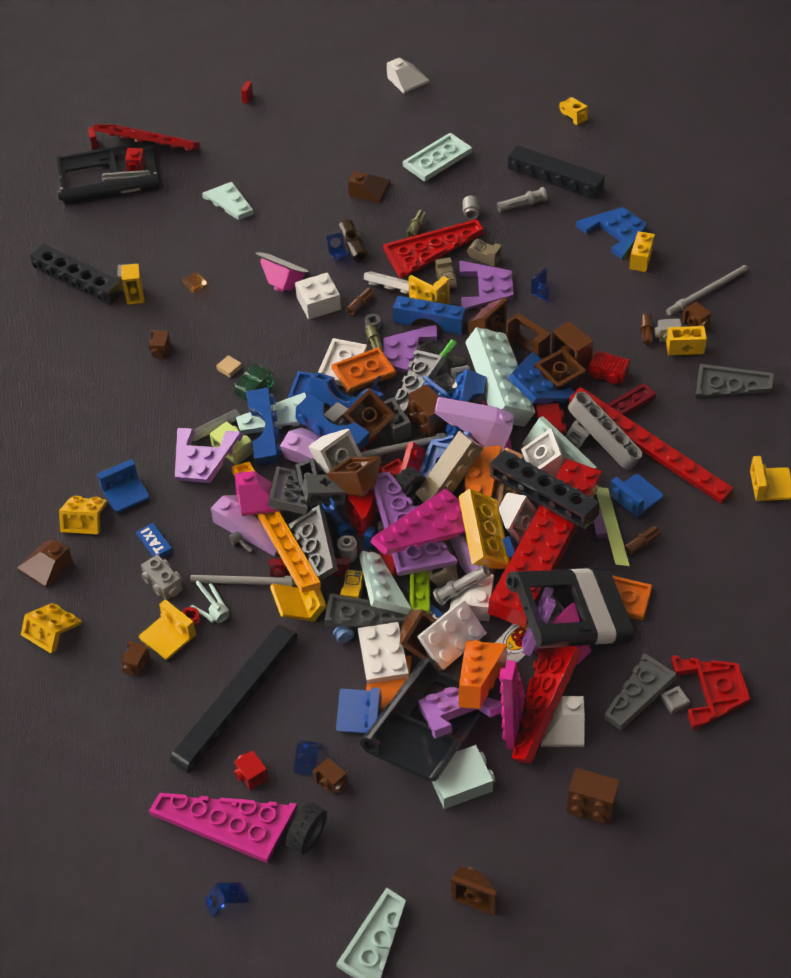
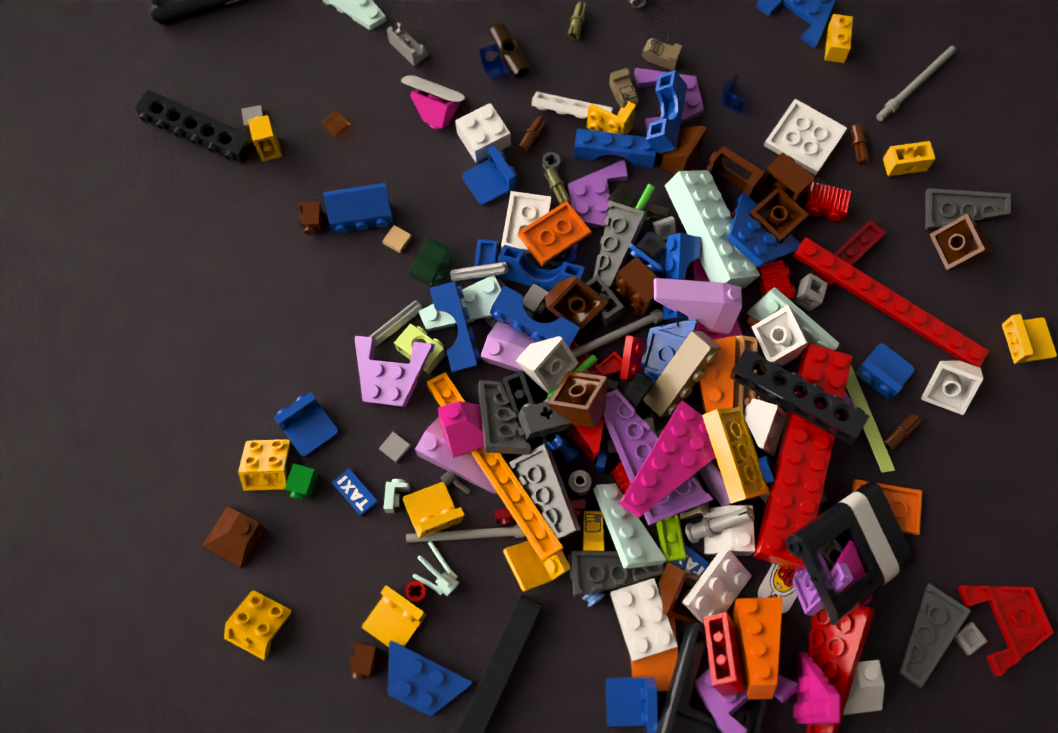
camera: 10 degrees left, 20 degrees up
(110, 527) = (301, 482): none -> green brick
(161, 577) = (380, 550): light grey brick -> none
(181, 680) = (421, 681): none -> blue wing
(185, 543) = (391, 498): none -> light aqua bracket
(195, 512) = (394, 447): none -> light grey tile
(200, 337) = (358, 208): none -> blue slope
(217, 558) = (432, 510): none -> yellow bracket
(266, 231) = (407, 45): none -> light grey hinge
(294, 390) = (479, 271): none -> light grey axle
(319, 328) = (491, 177): none -> blue bracket
(417, 251) = (589, 57): red wing -> none
(444, 673) = (724, 654): none -> red brick
(483, 277) = (671, 95): none -> blue arch
(600, 319) = (805, 136): none -> white plate
(605, 430) = (842, 293): light grey beam -> none
(662, 328) = (882, 141): light grey brick -> none
(693, 508) = (953, 385): none -> white slope
(696, 315) = (913, 123): reddish brown brick -> none
(723, 406) = (961, 243): none -> reddish brown slope

